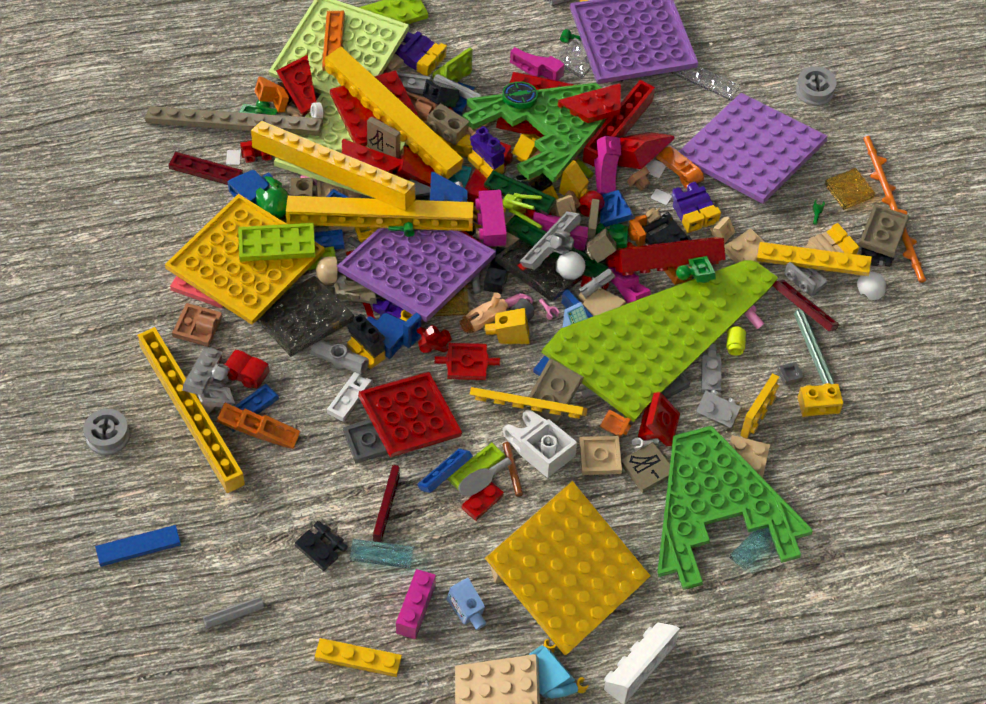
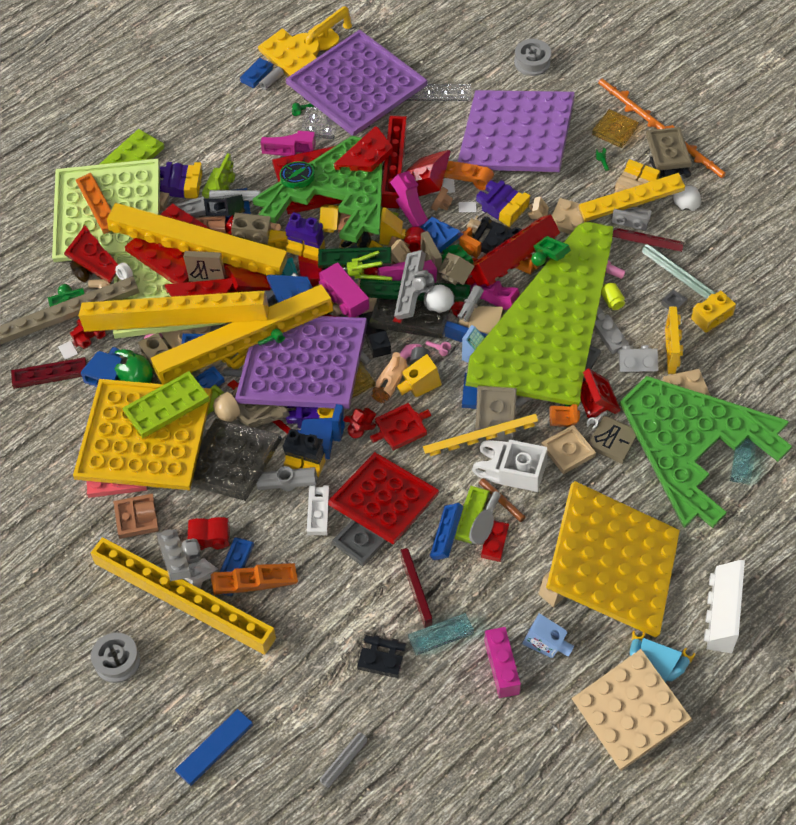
camera: 25 degrees left, 0 degrees up
(271, 92) = (69, 274): orange slope -> none
(358, 657) = (481, 738): yellow plate -> none

